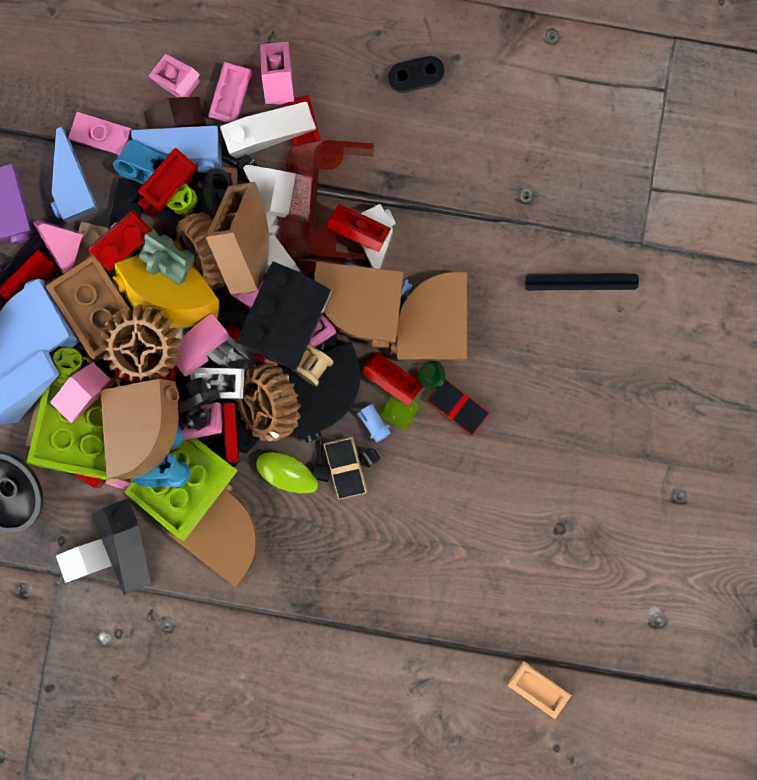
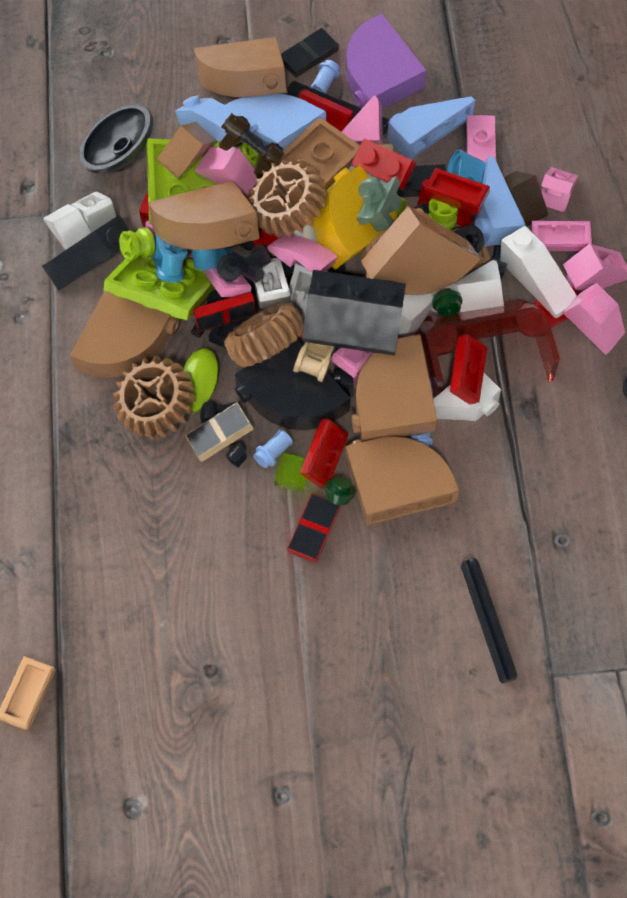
camera: 75 degrees right, 20 degrees down
(49, 425) = (185, 149): none -> medium nougat slope
(54, 372) = (237, 131): none -> dark brown piece
(73, 531) = (96, 210): none -> white slope
(139, 498) = (137, 244): none -> lime wheel
(282, 225) = (447, 302): none -> dark green plate
(307, 511) = (165, 377): none -> medium nougat gear
(329, 93) = (597, 317): none -> bright pink slope

